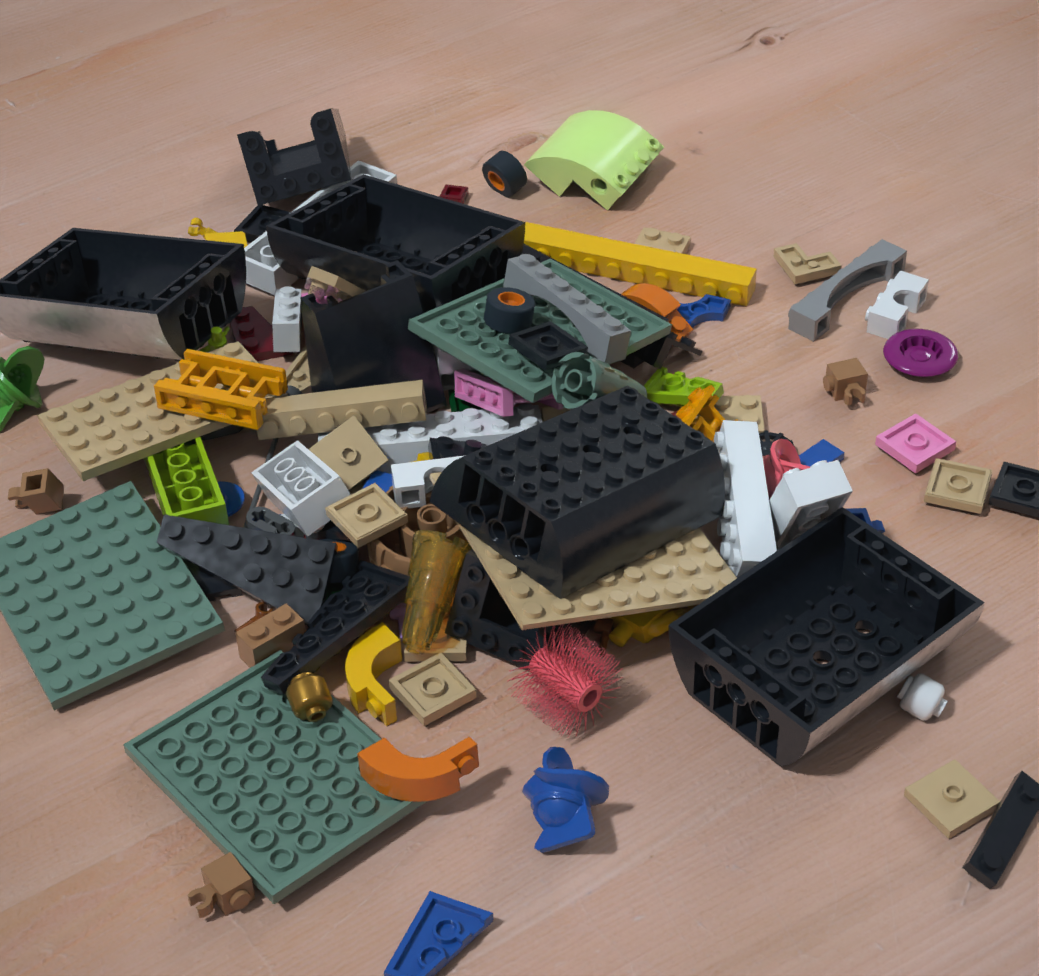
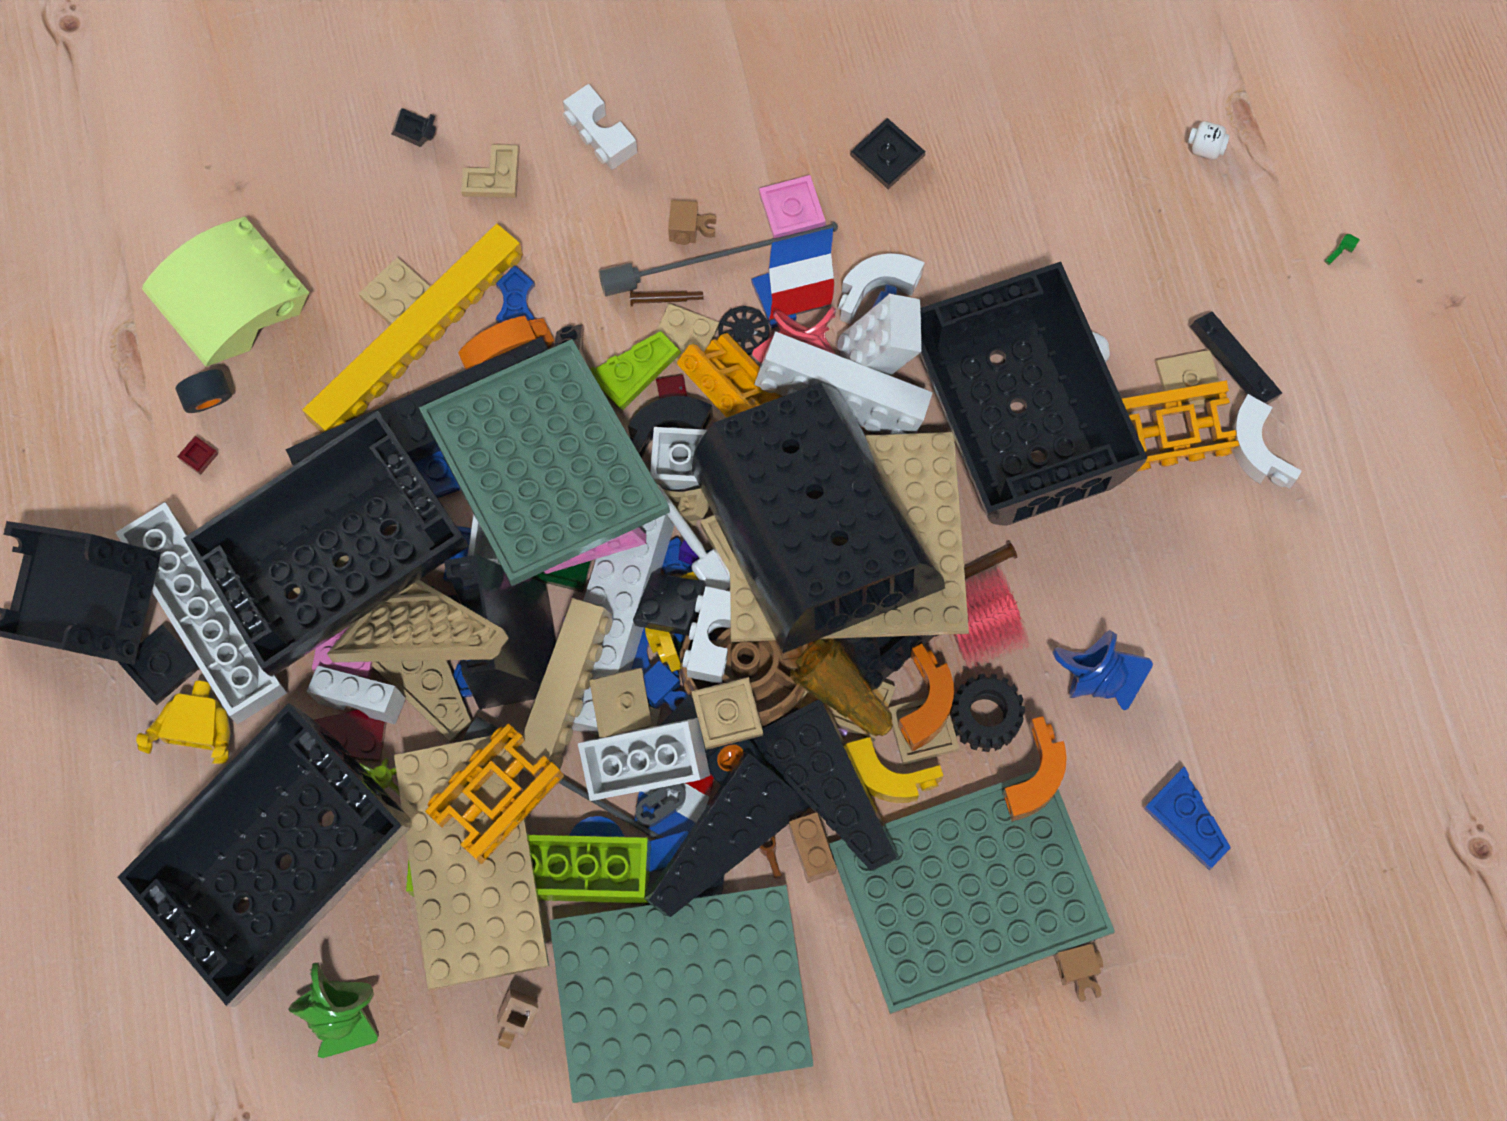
camera: 70 degrees left, 30 degrees up
(309, 697) = (916, 836): pearl gold head -> none
(457, 676) = (928, 721): none -> orange arch
(472, 707) = (1003, 696): none -> black tyre
(509, 310) = (533, 481): black wheel -> none
(545, 344) = (602, 467): black plate -> none
(587, 379) = (670, 451): sand green cone -> none
(602, 333) = (489, 439): light grey arch -> none
(659, 702) = (990, 561): none -> reddish brown piece
(750, 375) = (663, 297): none -> reddish brown piece
(812, 209) = (413, 127): none -> black bracket
(812, 314) = (578, 205): light grey arch -> none
(864, 463) = (797, 270): none -> flag
(897, 516) = (875, 273): none -> white arch
(905, 772) = (1171, 402): none -> light orange fence
(913, 864) = (1252, 452): none -> white arch
(920, 352) = (673, 151): magenta wheel -> none
(958, 486) = (859, 201): tan plate -> none

